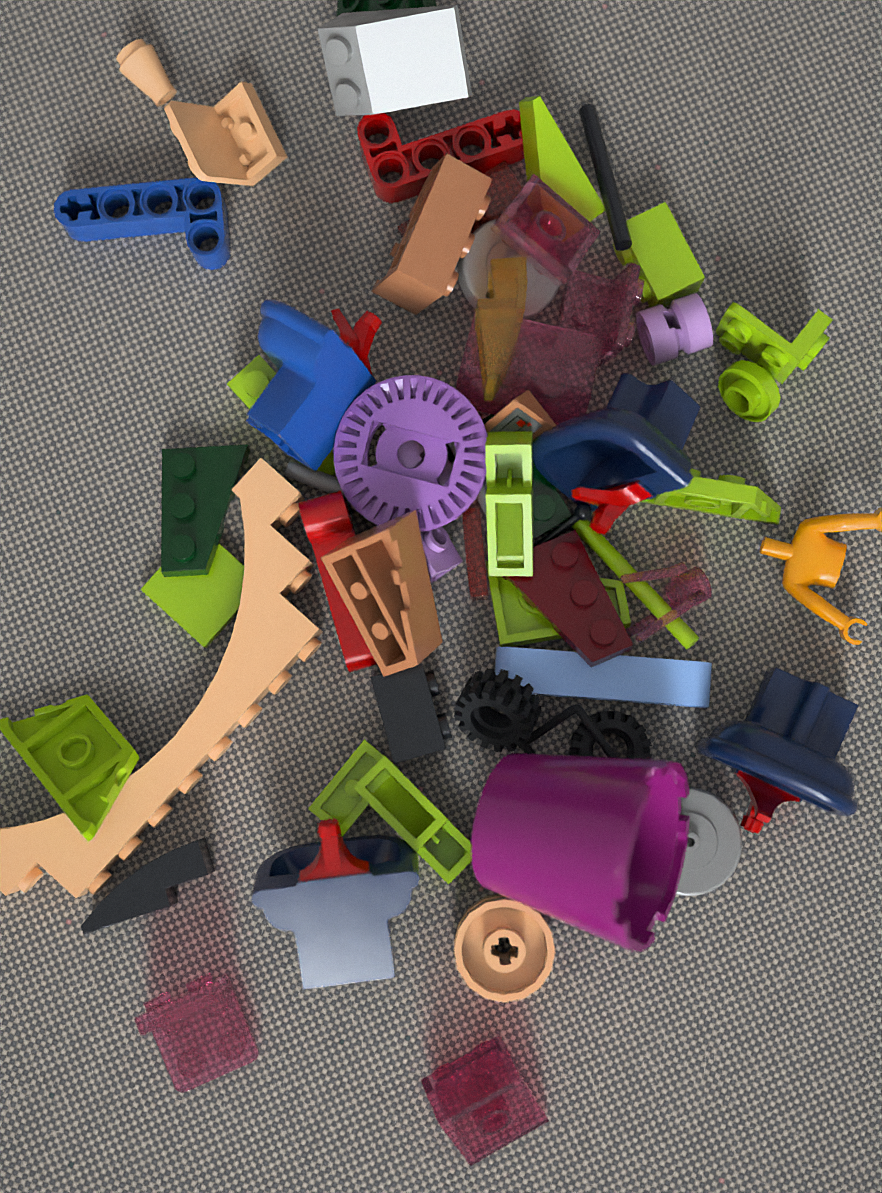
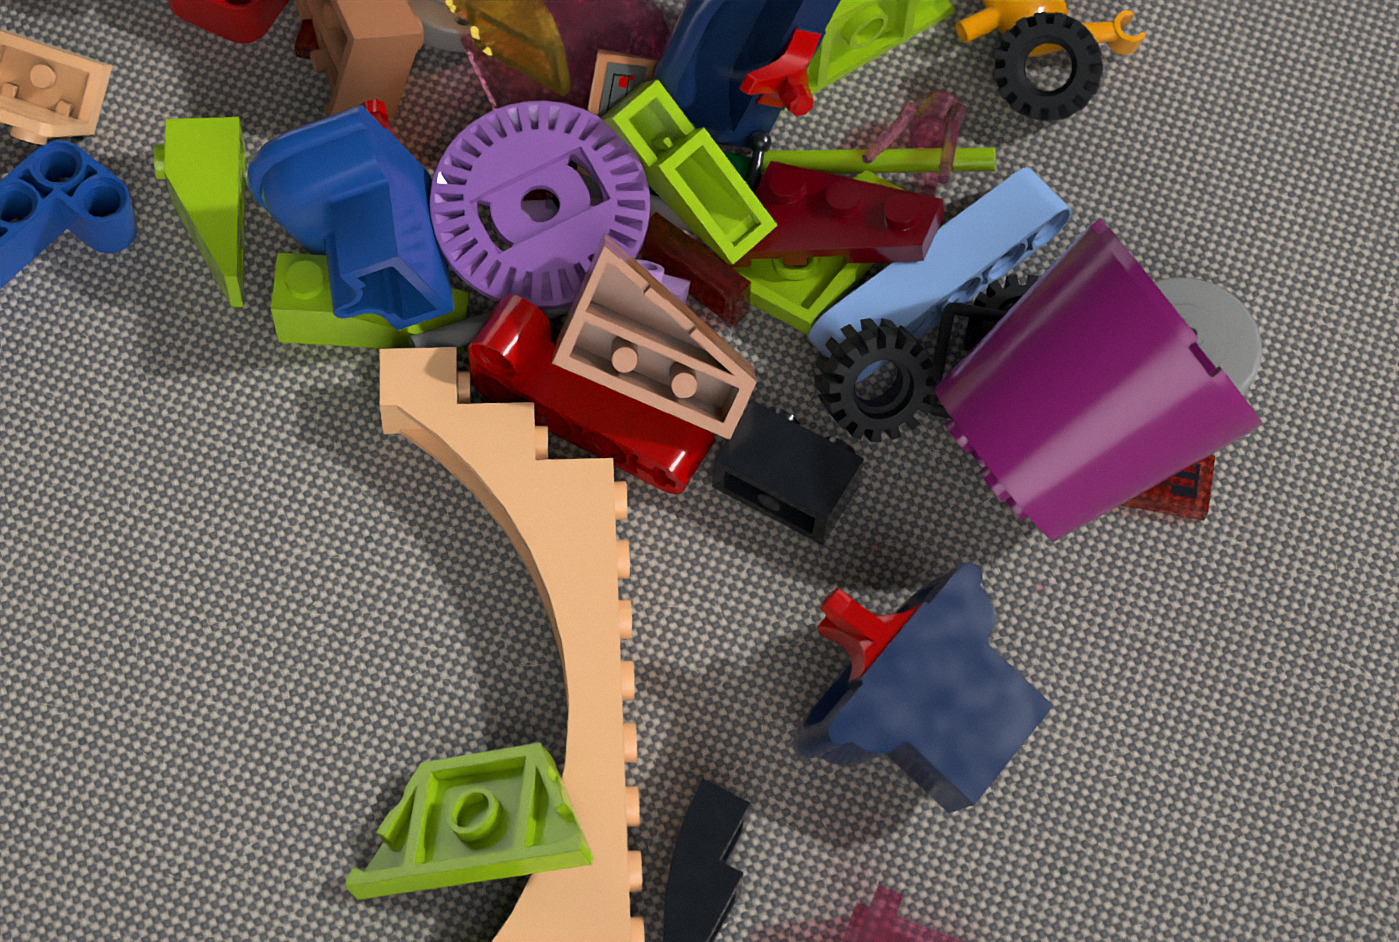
camera: 55 degrees left, 20 degrees down
(195, 504) = (348, 469): dark green wing -> none
(201, 602) = (435, 551): lime tile -> none
(274, 271) = (206, 185): none -> lime slope
(339, 798) = (802, 576): lime plate -> none
(415, 819) = (900, 555): lime slope -> none
(483, 1100) = (1268, 770): clear pink slope -> none
(507, 974) = (1123, 599): light nougat wheel -> none
(787, 748) = (1188, 180): dark blue piece -> none
(805, 602) = (1016, 47): none -> black tyre

